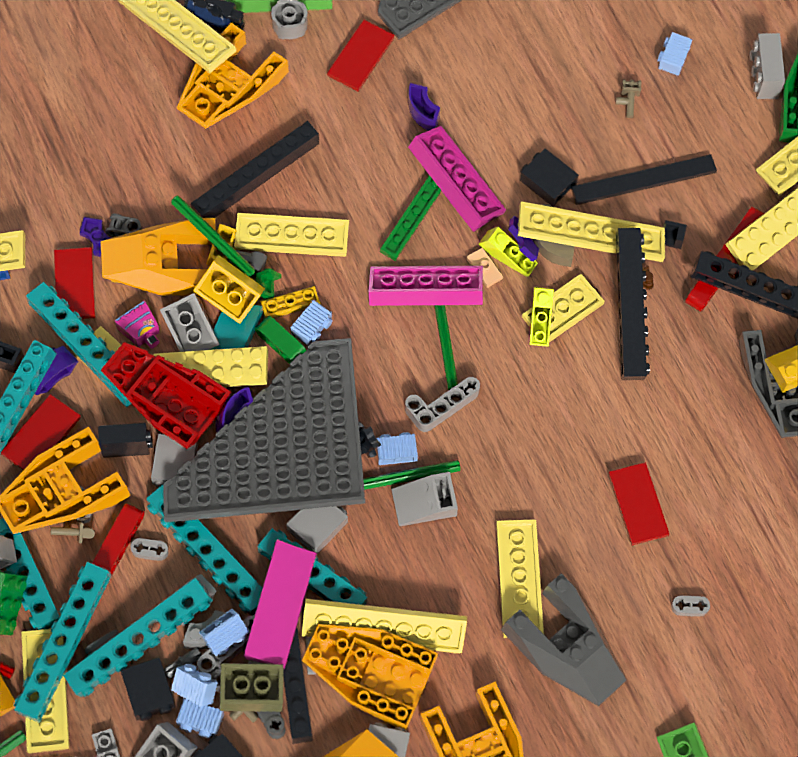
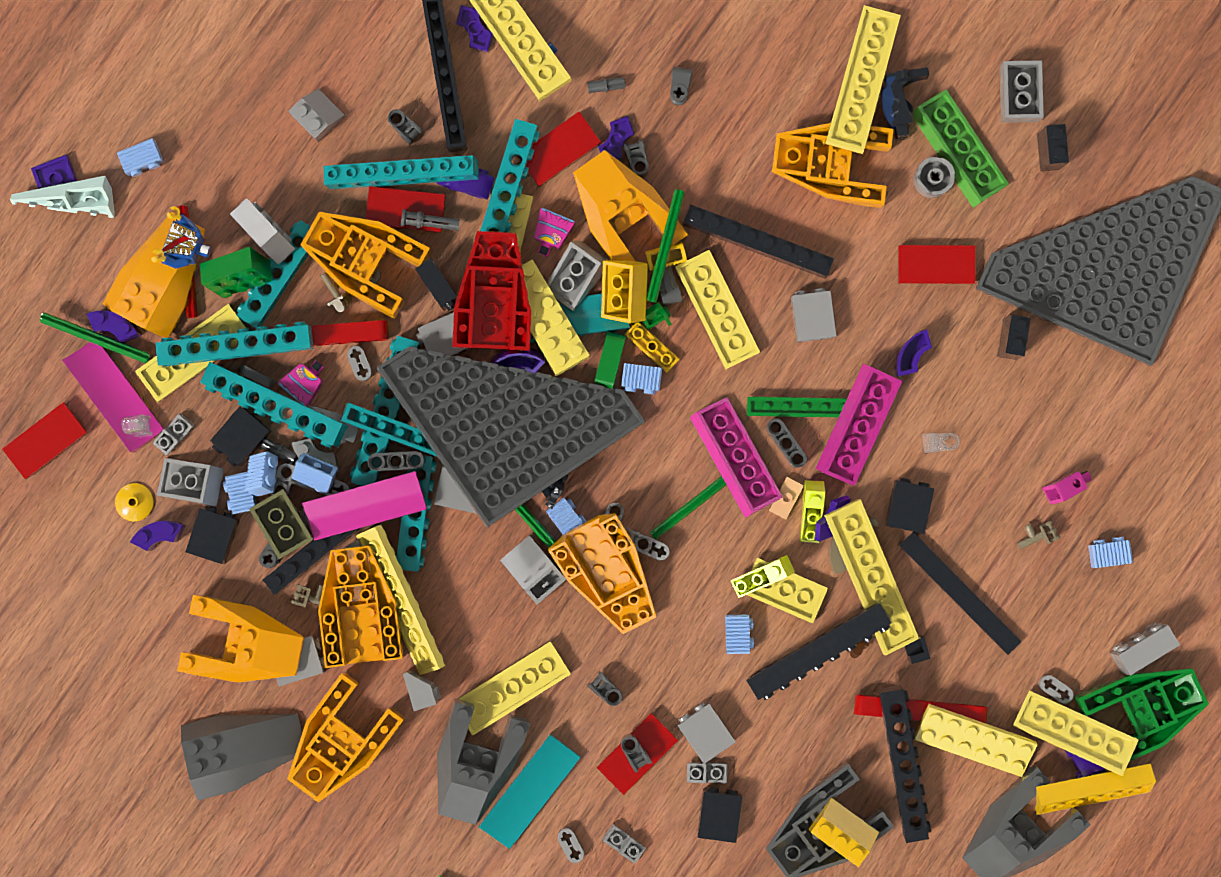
camera: 65 degrees right, 20 degrees up
(46, 220) = (606, 85): none -> dark grey axle
(57, 424) = (453, 223): none -> dark grey pin
(86, 163) = (680, 83): none -> dark grey piece
(133, 603) = (303, 382): none -> dark pink torso
(228, 542) = (385, 427): none -> teal brick
(257, 547) = (387, 461): none -> dark grey beam
(330, 713) = (307, 597): none -> dark tan arm
(344, 165) = (813, 315): none -> light grey brick
(430, 246) = (778, 437): none -> dark grey beam
(456, 26) = (1013, 337): none -> black brick
(461, 434) = (606, 570): none -> light orange wedge
(476, 653) = (421, 690): none -> light grey slope
(507, 128) = (936, 442): none -> clear piece
(563, 500) = (605, 688): none -> dark grey piece
(579, 364) = (738, 634): none -> light blue brick
(602, 48) = (1067, 486): none -> dark pink torso
(621, 615) = (529, 791): none -> teal arch
(640, 500) = (636, 755): none -> dark grey piece
(651, 436) = (705, 732): none -> light grey brick
(687, 455) = (708, 772): none -> light grey slope
(713, 560) = (623, 843): none -> light grey slope
(730, 464) = (719, 815): none -> black brick
(763, 148) = (1053, 692): none -> light grey beam

